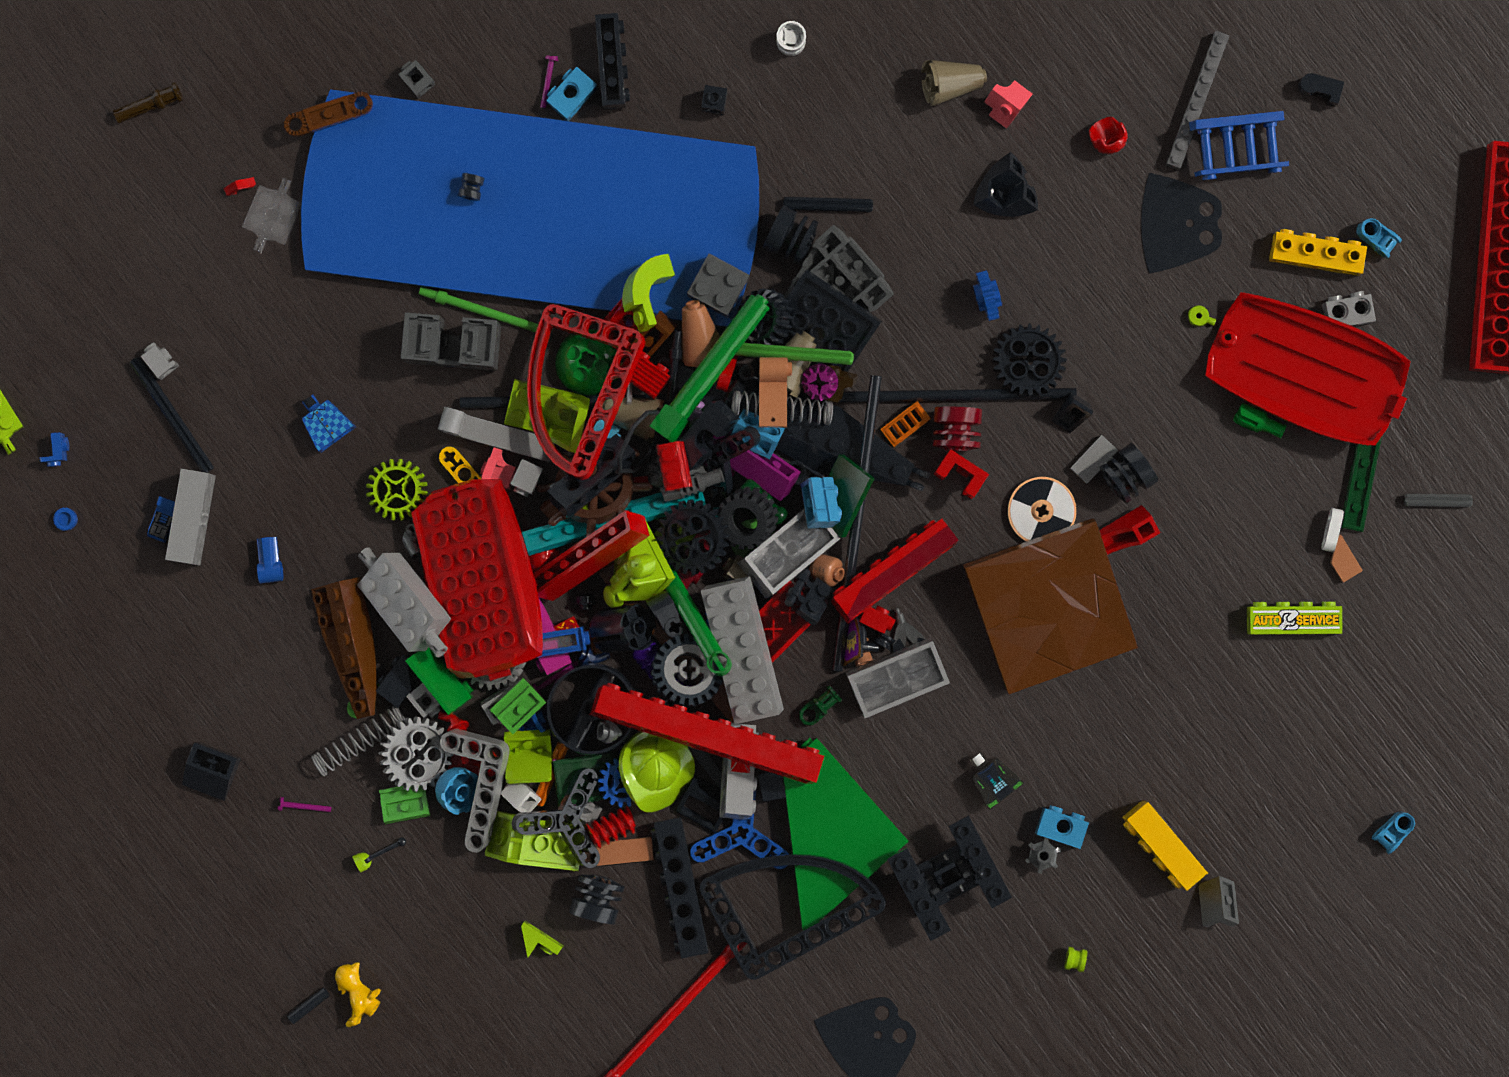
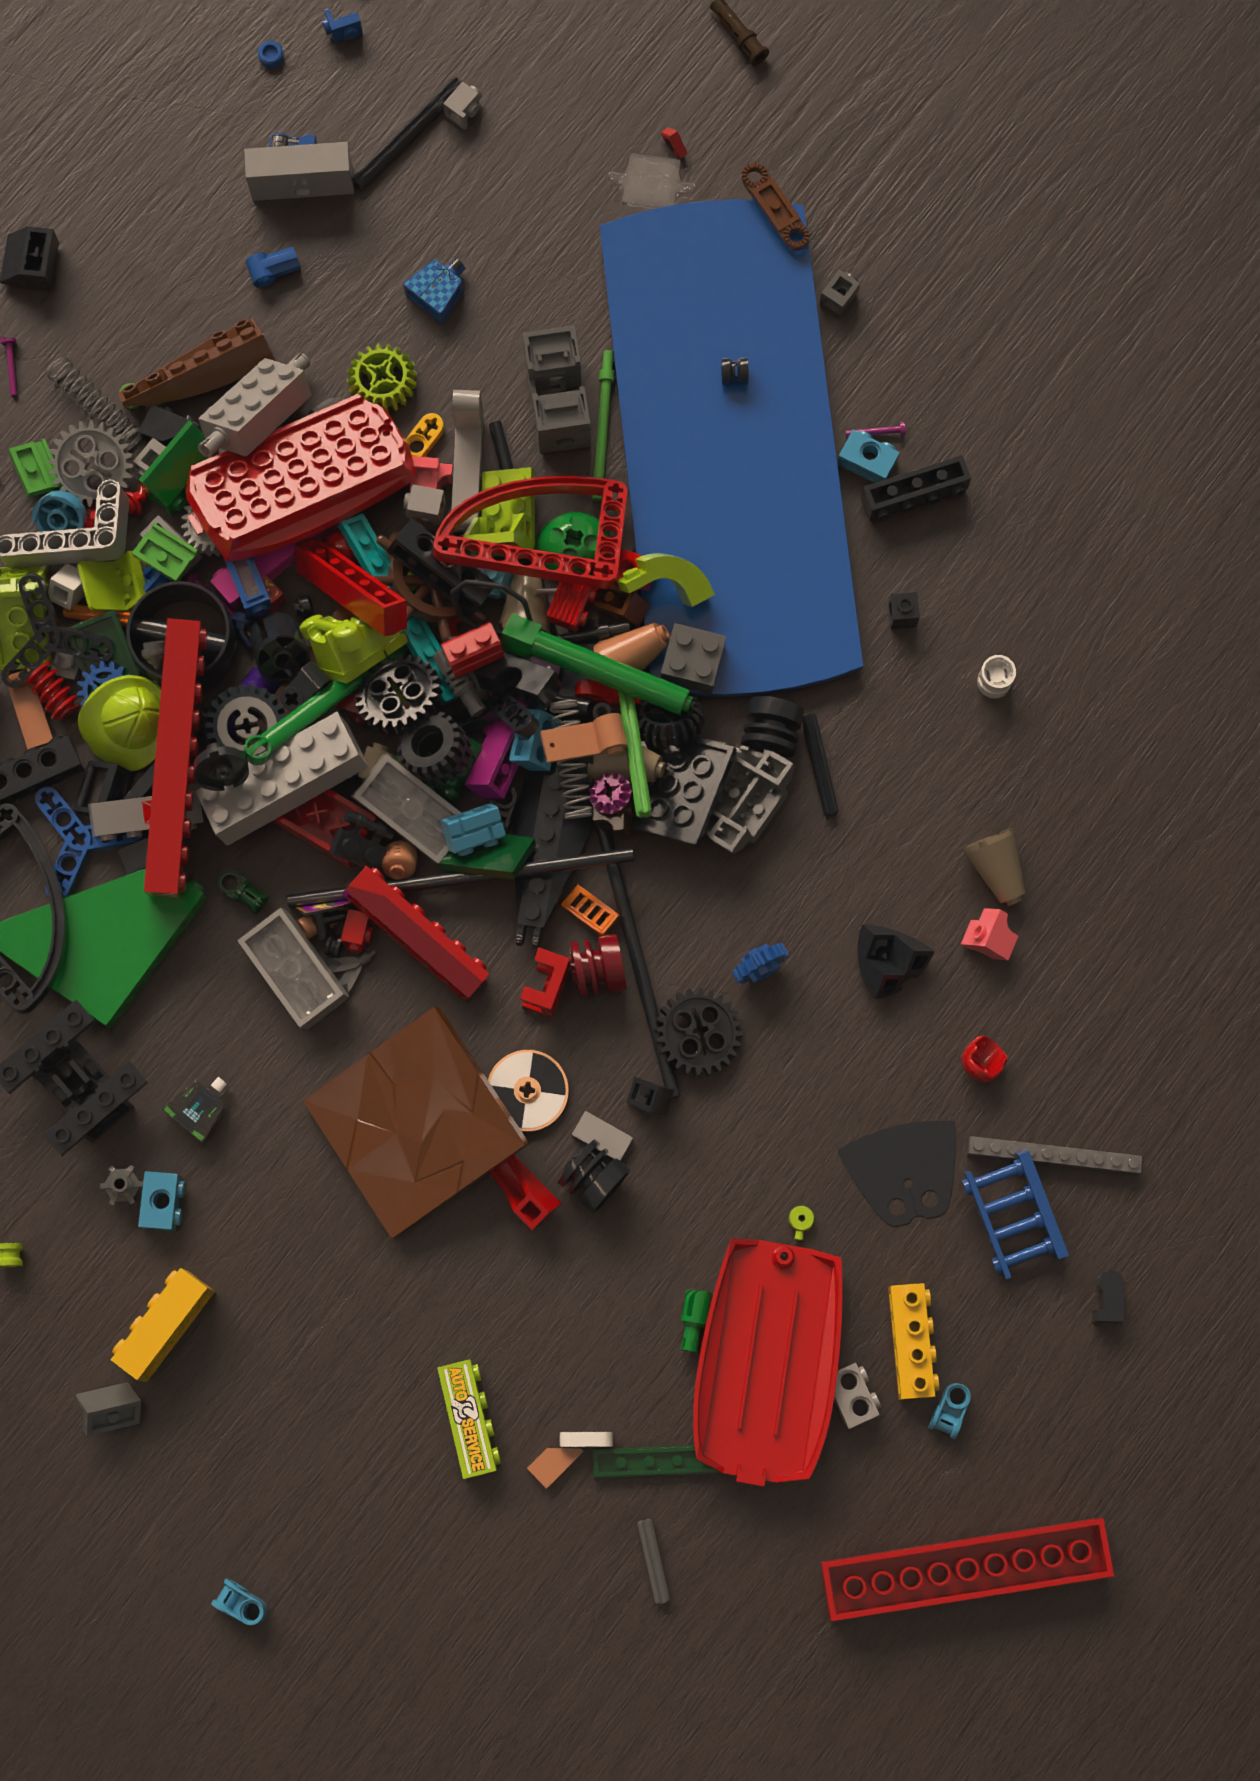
camera: 75 degrees right, 10 degrees down
(729, 696) = (217, 756): none -> black plate

